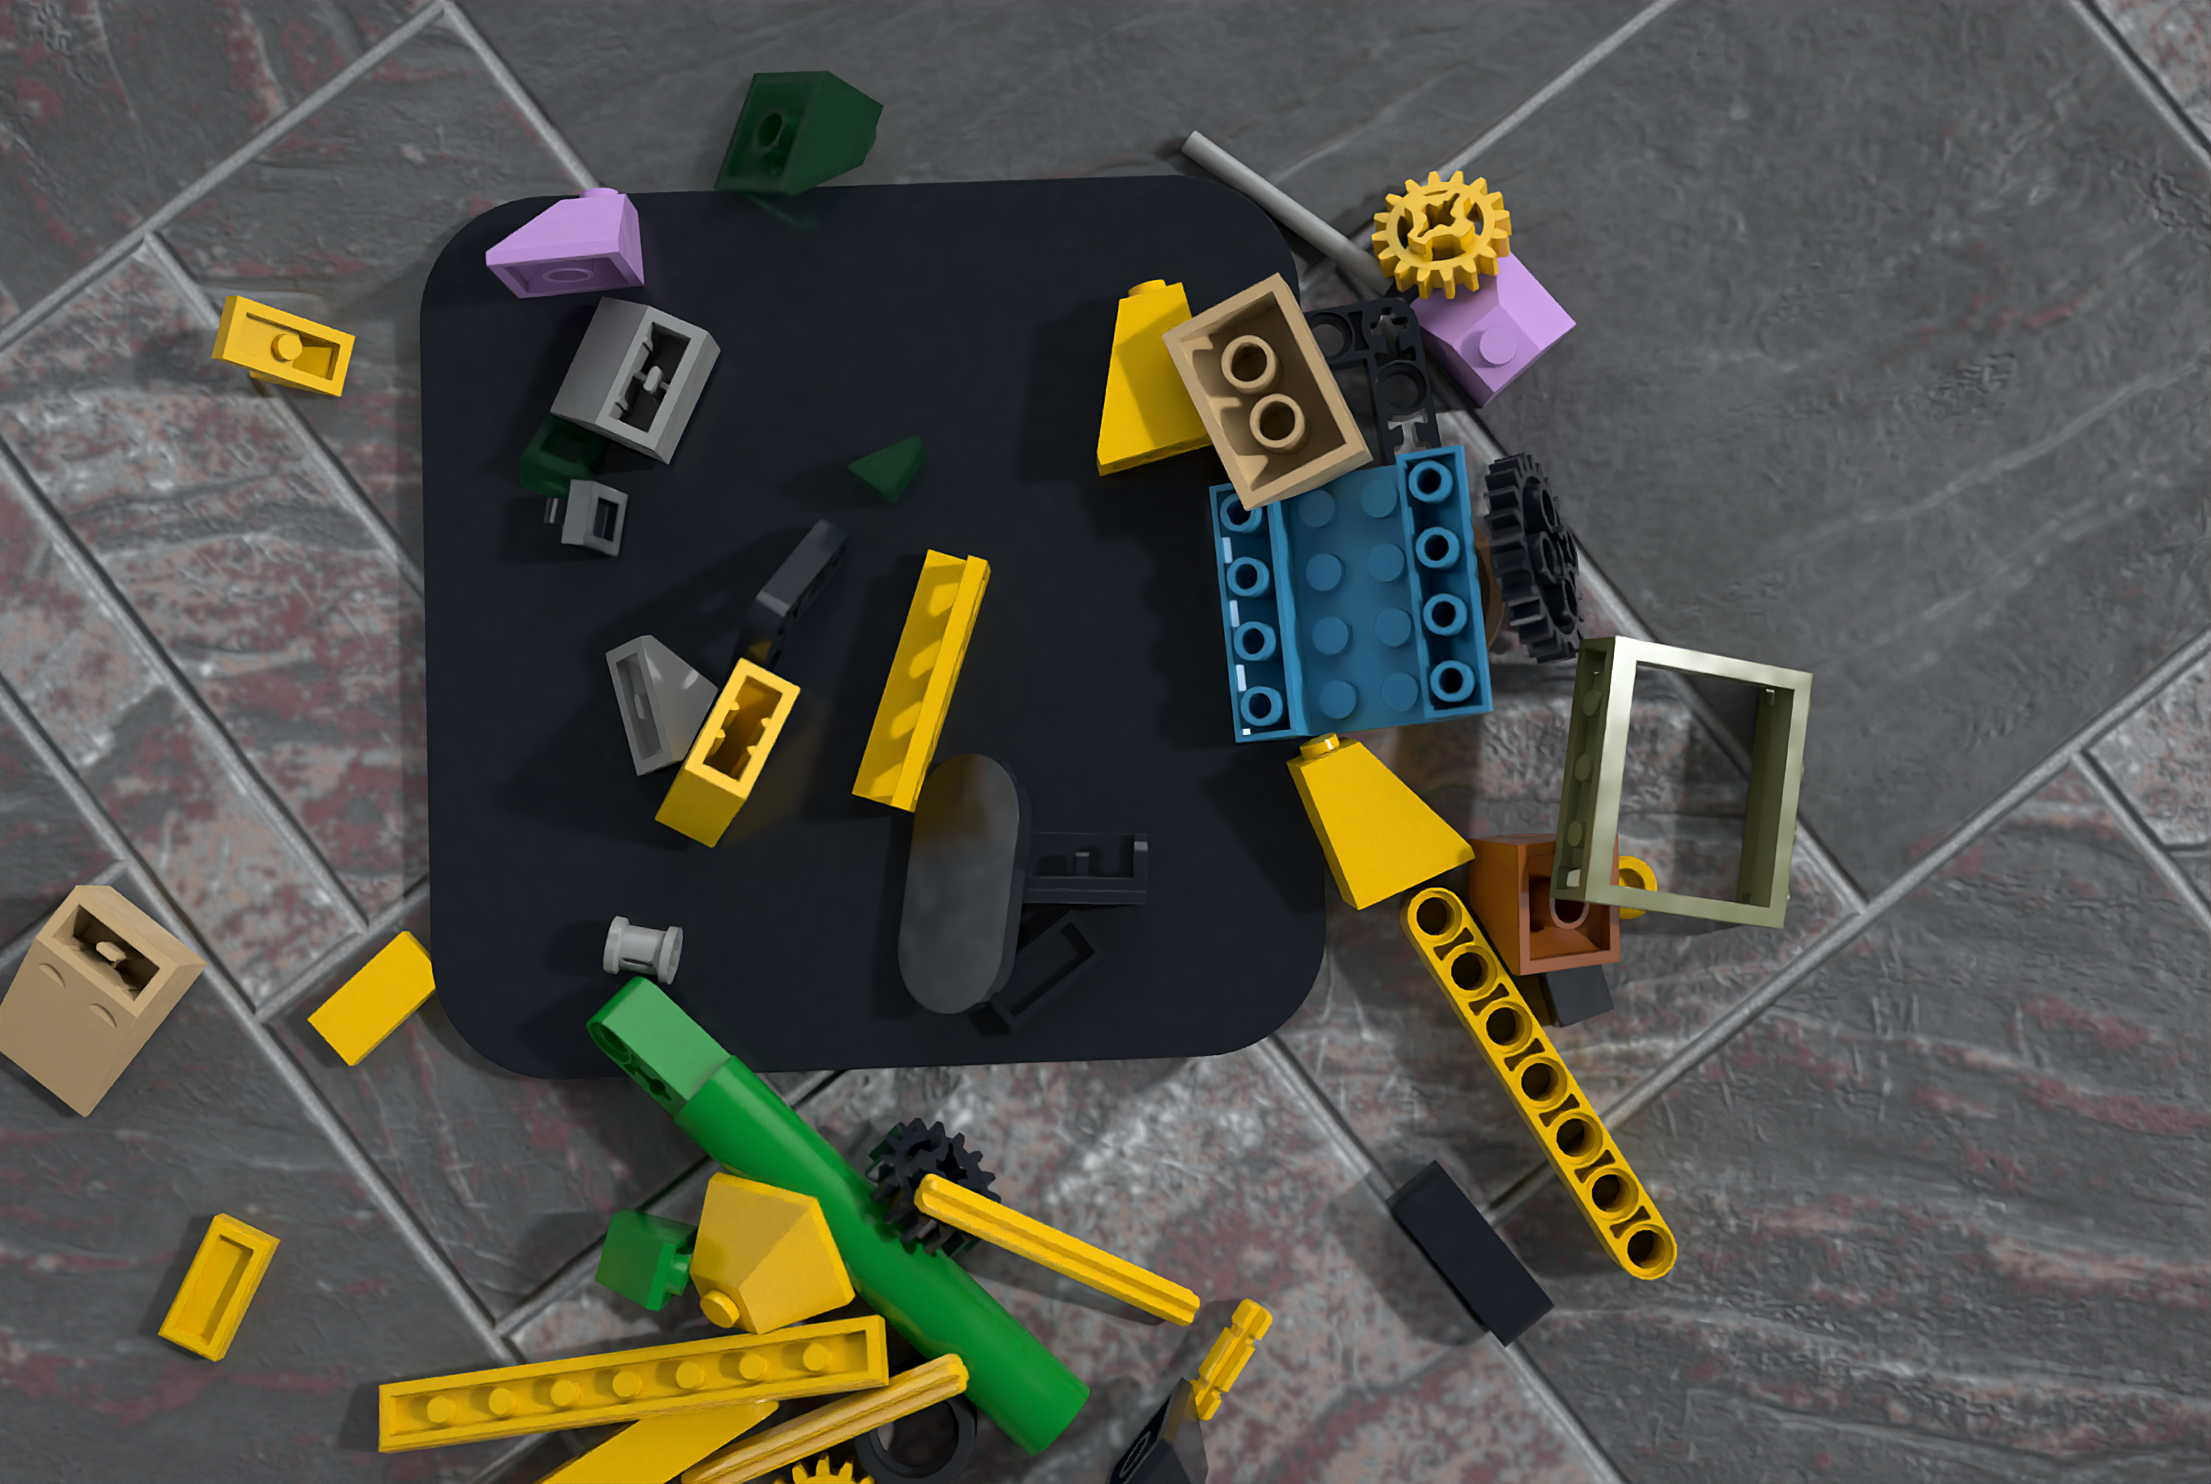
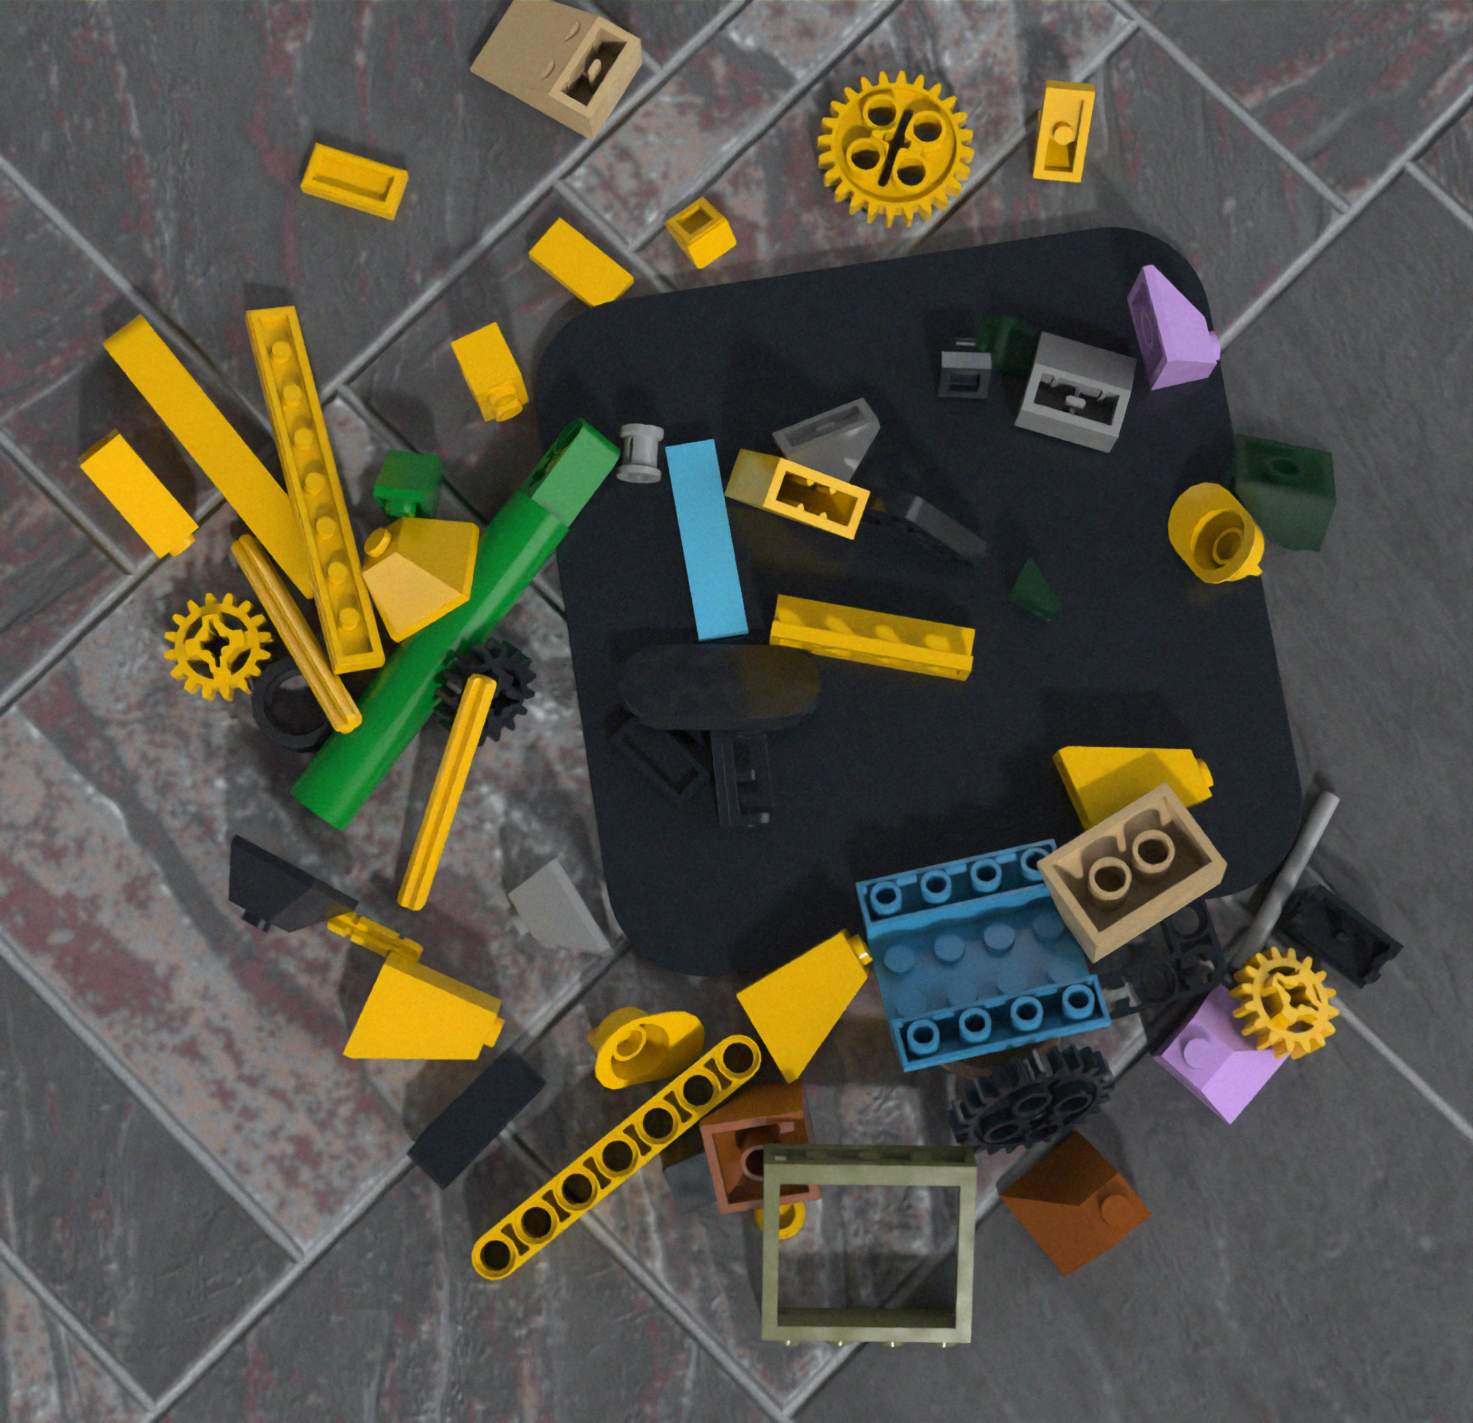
camera: 85 degrees right, 5 degrees down
(251, 618) = (935, 162): none -> yellow gear
(354, 835) = (701, 232): none -> yellow slope
(509, 1135) = (491, 373): none -> yellow brick
(767, 877) = (706, 540): none -> medium azure tile
(846, 230) = (1215, 534): none -> yellow piece
(1229, 1121) = (556, 912): none -> light grey slope
(1337, 1308) = (423, 1016): none -> yellow slope
(1365, 156) = (1340, 936): none -> black hinge
(1405, 1037) = (644, 1046): none -> yellow piece
(1654, 524) = (1074, 1204): none -> dark orange slope

